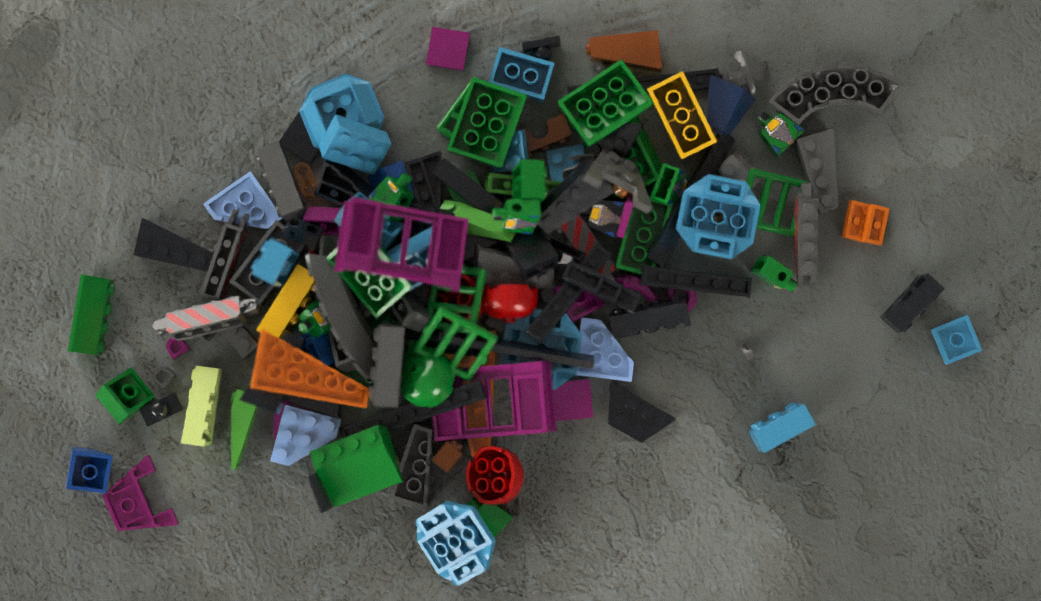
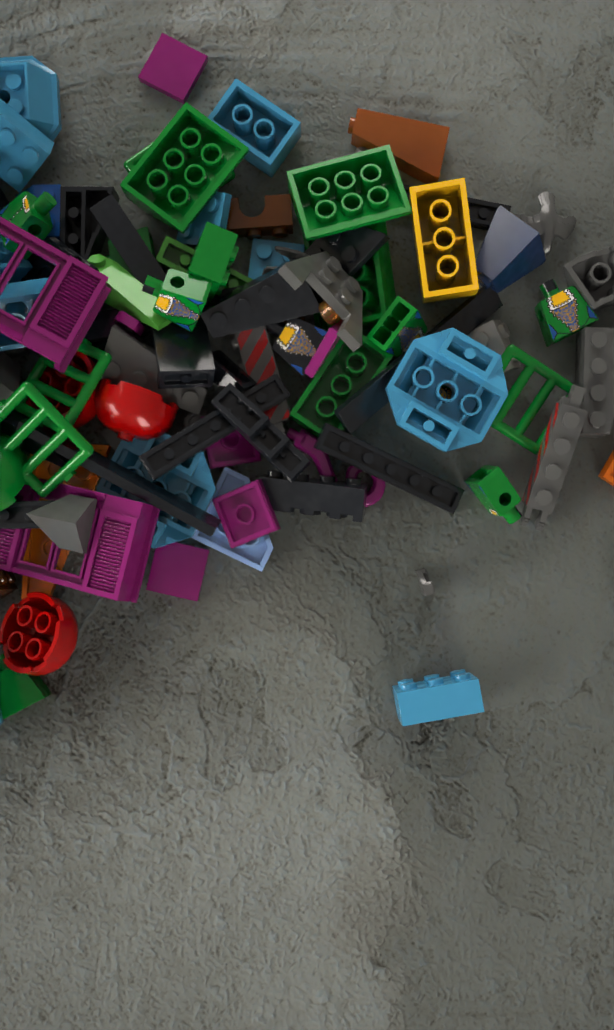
camera: 20 degrees right, 0 degrees up
(485, 241) = (130, 323): none -> magenta tile
(493, 391) = (67, 521): none -> dark grey slope
(541, 47) = (294, 101): black tile -> none
(608, 345) = (246, 513): none -> magenta tile
(635, 415) = (252, 616): black wing -> none

